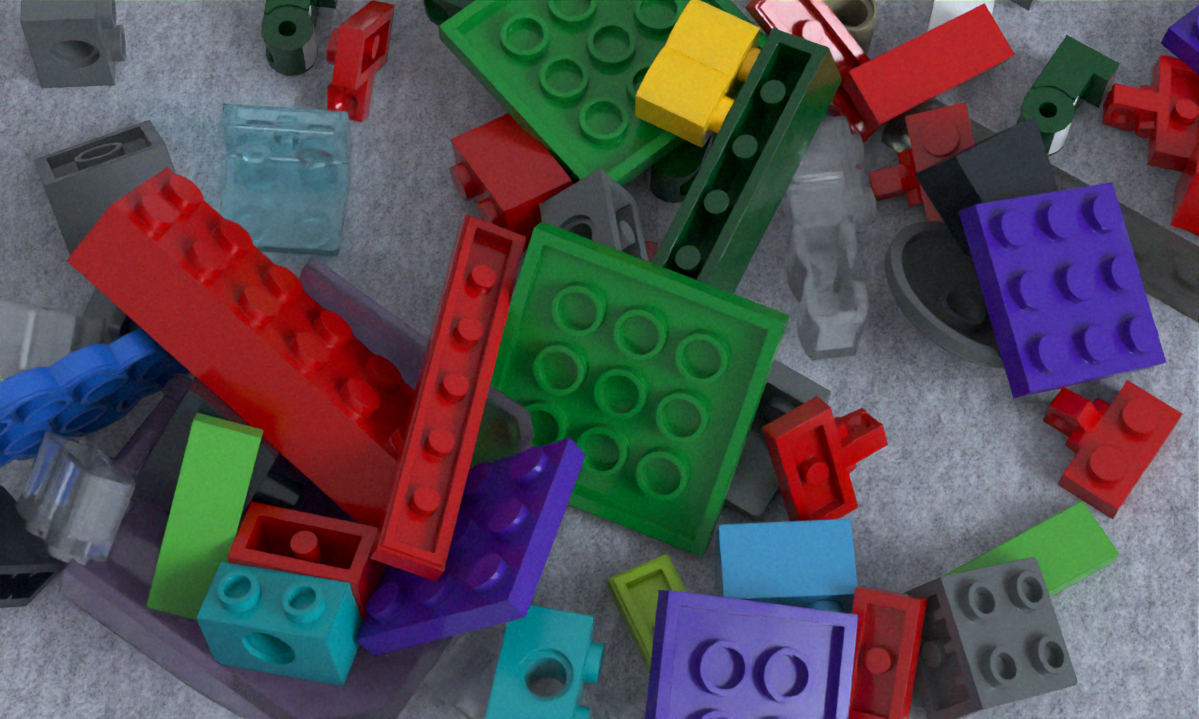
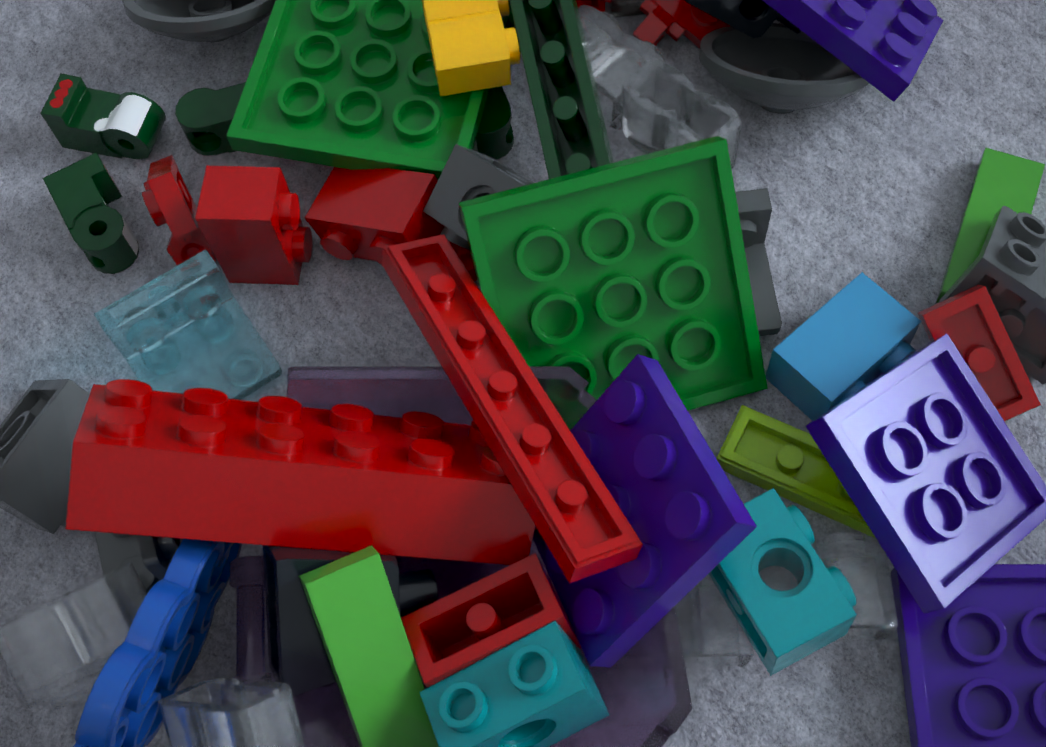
camera: 30 degrees left, 0 degrees up
(404, 117) = (253, 224): none -> red brick
(817, 454) = (792, 247): red hinge -> none
(1110, 442) = (963, 97): red hinge -> none

